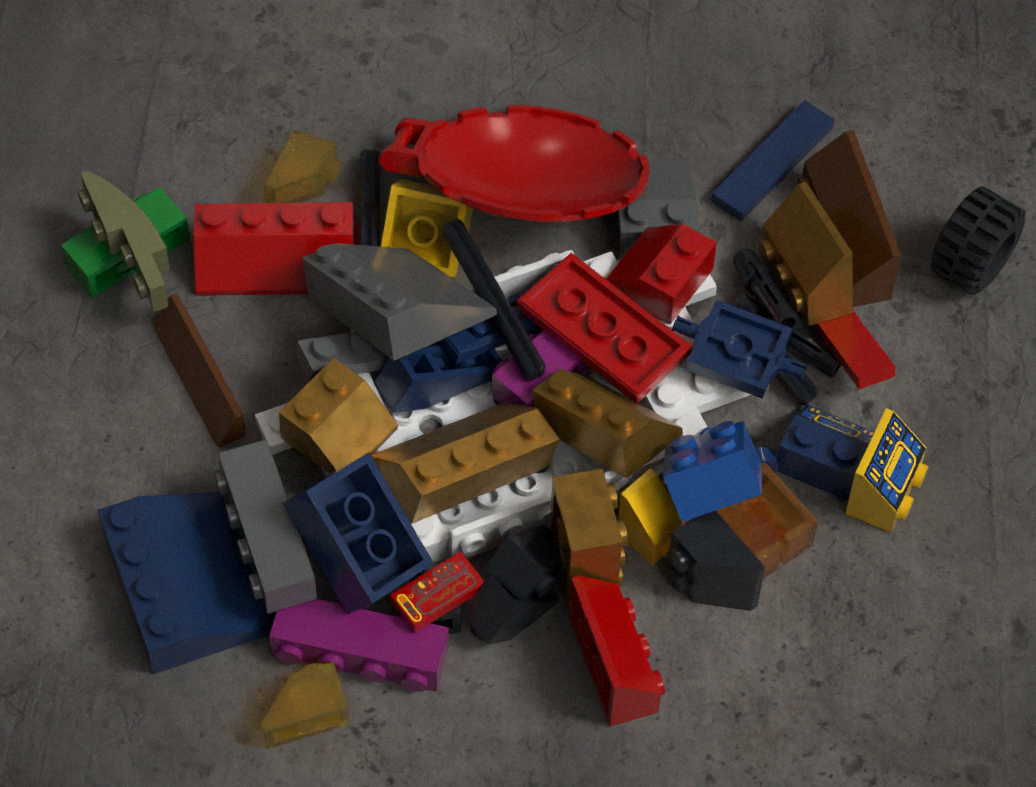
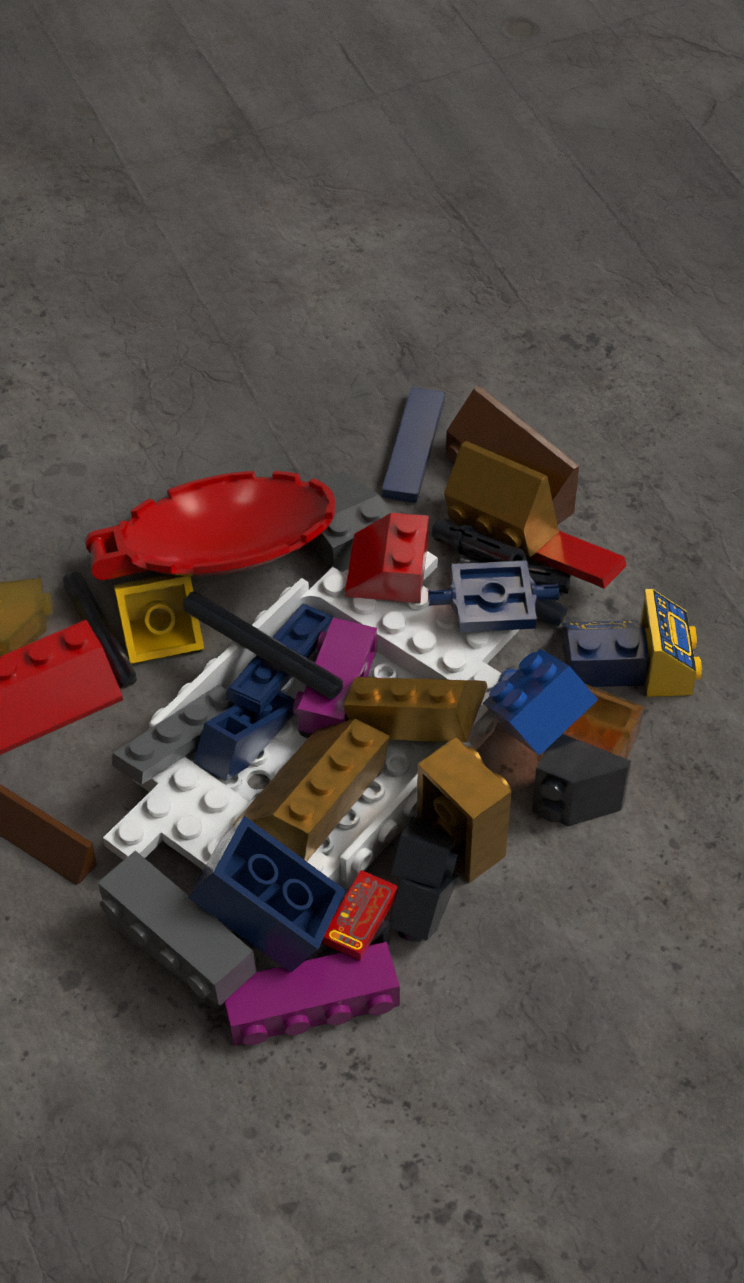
camera: 25 degrees left, 5 degrees down
(182, 576) = (114, 1014): dark blue slope -> none
(306, 706) = (299, 1071): clear yellow slope -> none
(336, 418) = (185, 806): pearl gold slope -> none
(391, 296) = (171, 682): dark grey slope -> none
(604, 327) = (369, 628): red tile -> none
(614, 650) = (535, 896): red slope -> none
(649, 517) = (508, 760): yellow slope -> none
(978, 240) = (624, 432): black tyre -> none

